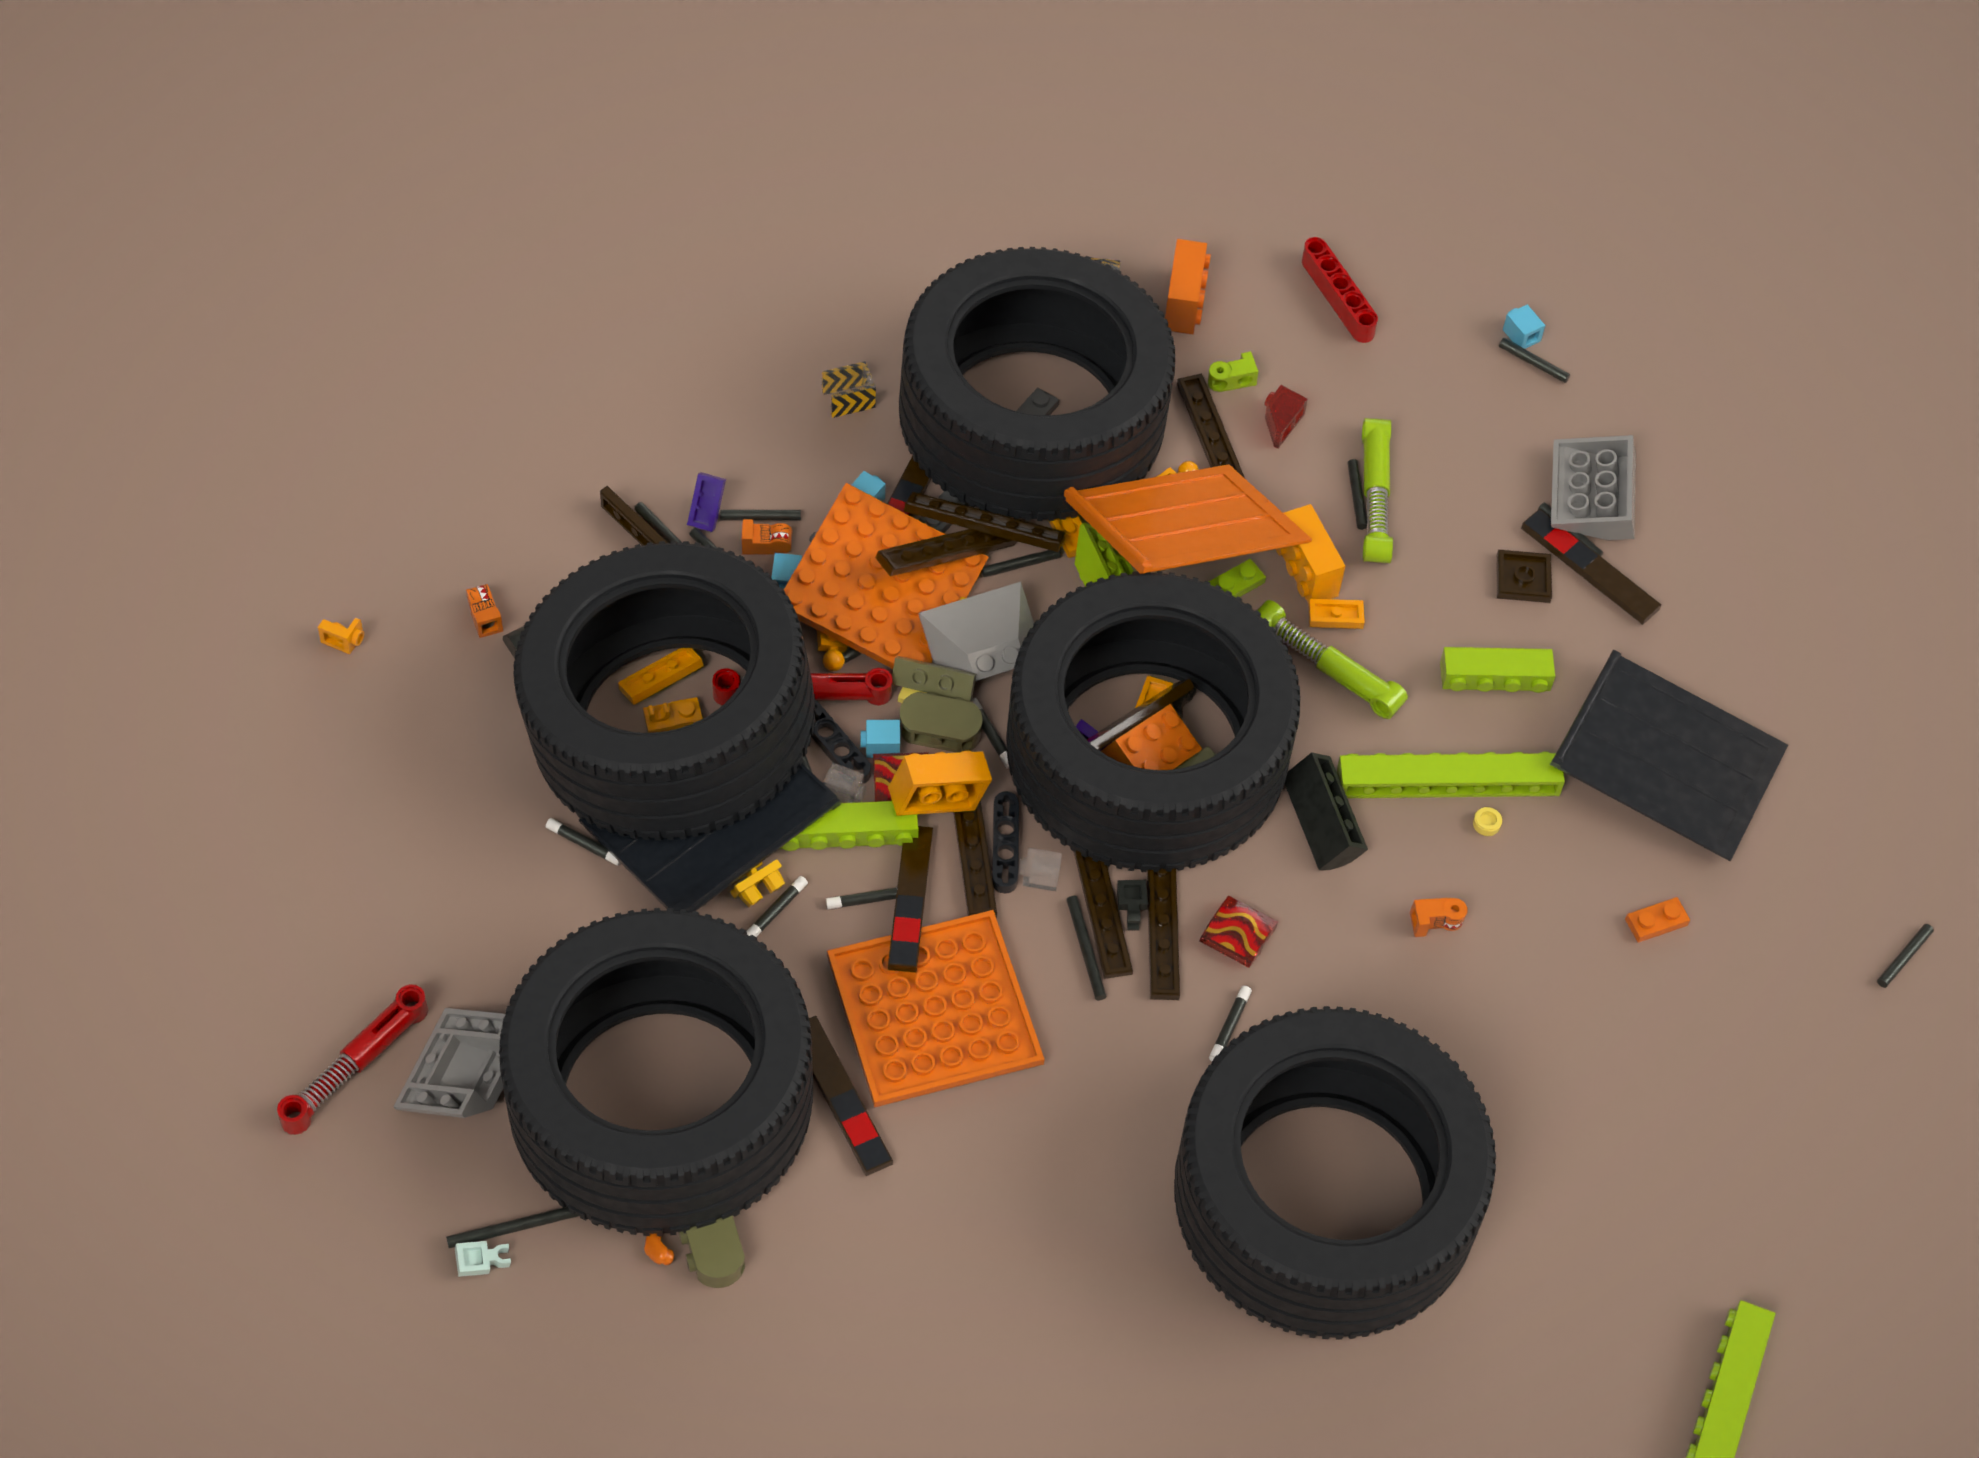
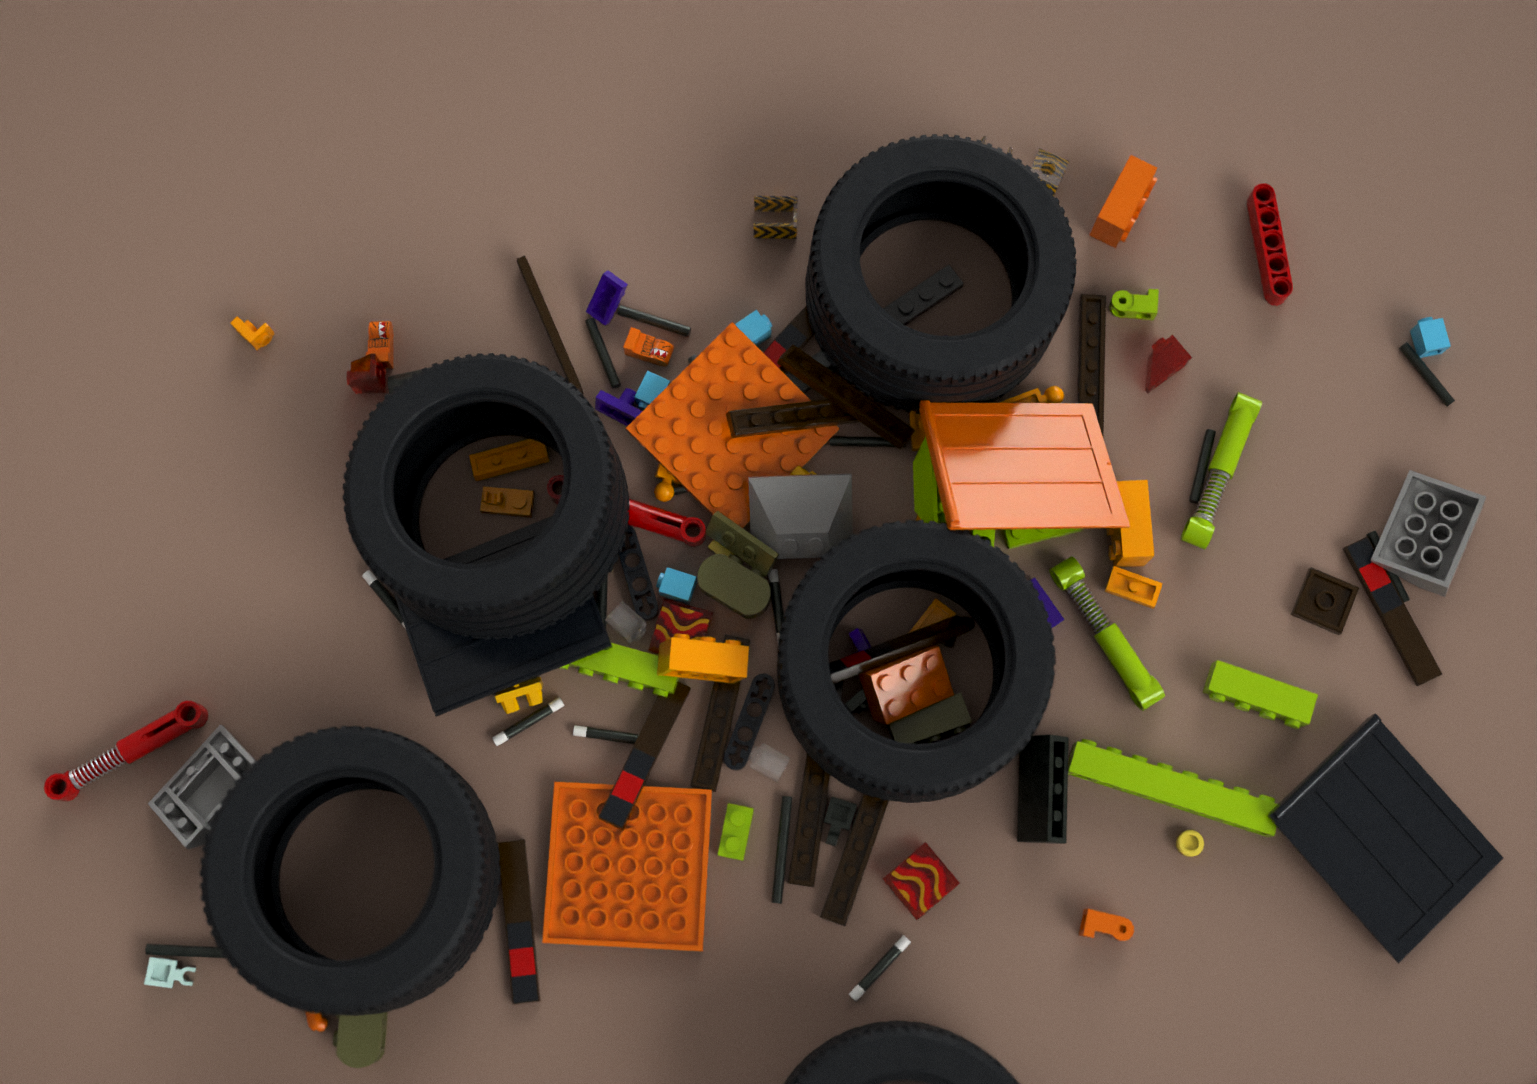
camera: 25 degrees right, 20 degrees up
(482, 636) = (367, 375): none -> clear red slope
(655, 523) = (563, 311): pearl dark grey bar -> none
(1032, 945) = (735, 832): none -> lime plate
(1657, 919) = (1306, 995): orange plate -> none

